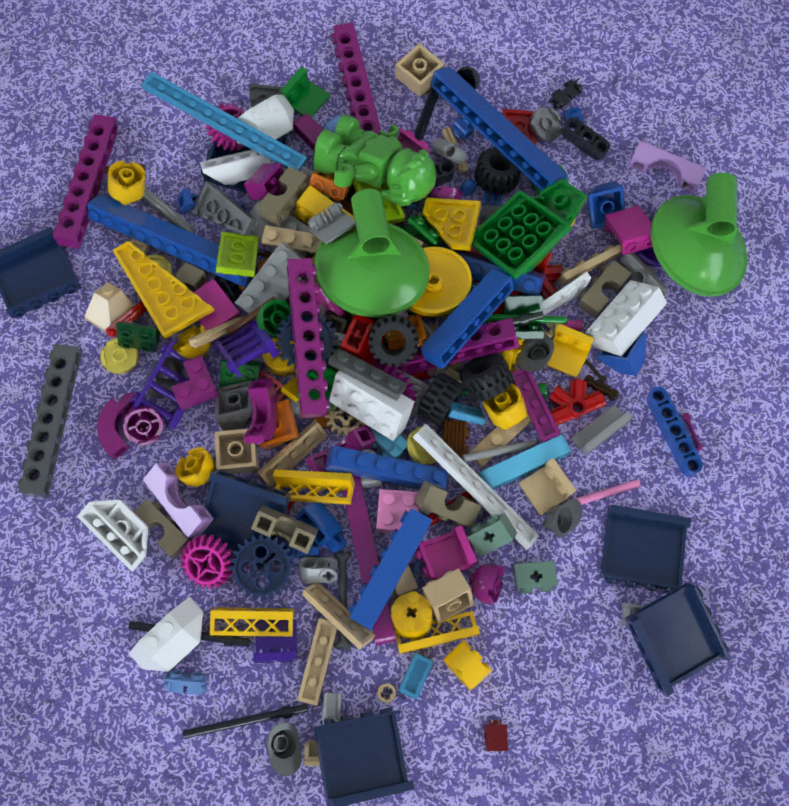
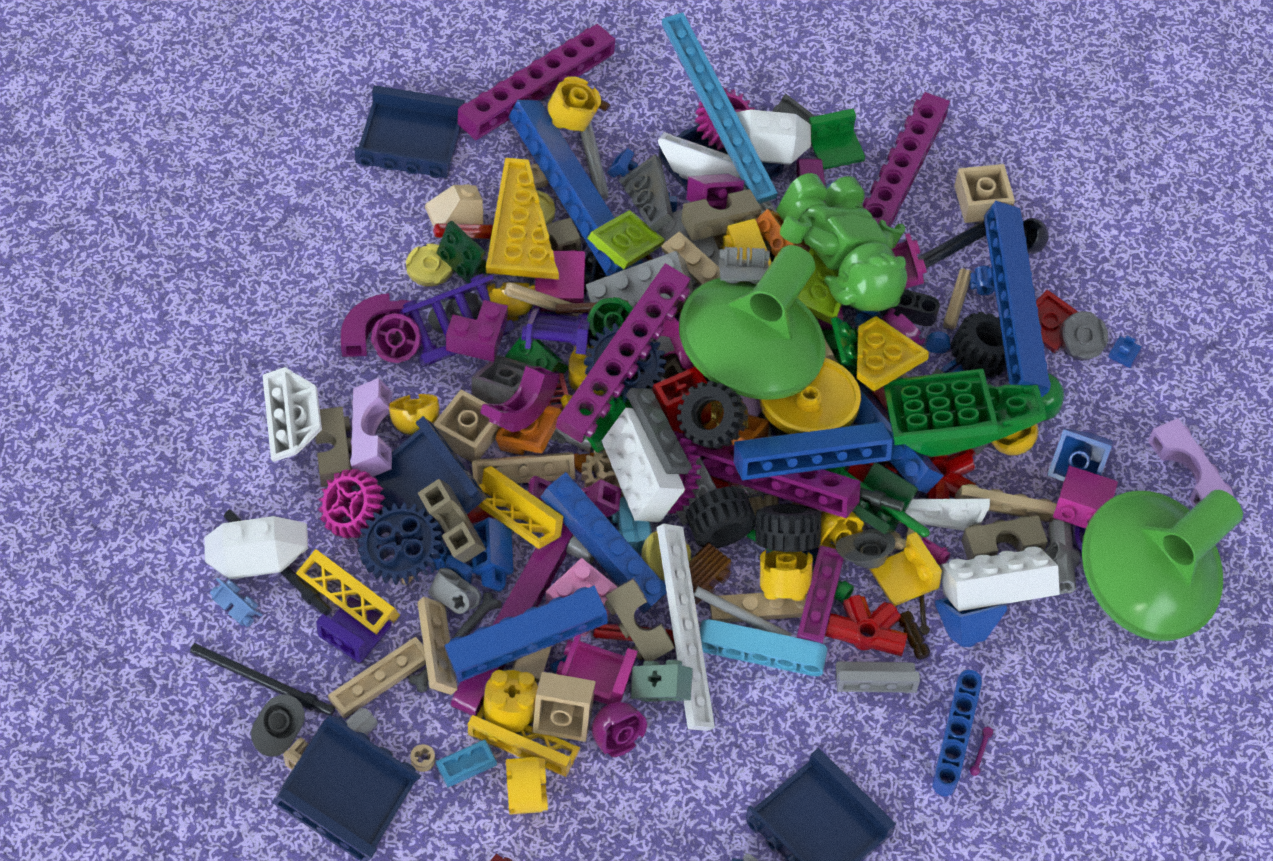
camera: 35 degrees right, 15 degrees down
(50, 448) = (326, 265): dark grey brick -> none
(449, 151) = (947, 292): light grey piece -> none
(466, 413) = (737, 552): dark azure plate -> none
(545, 570) = (687, 765): sand green brick -> none
(547, 487) = (763, 687): tan bracket -> none
(560, 97) = (1127, 320): black hinge -> none
(563, 518) = (758, 727): dark grey piece -> none
(582, 130) = (1117, 367): black beam -> none
(609, 492) = (821, 739): bright pink bar -> none

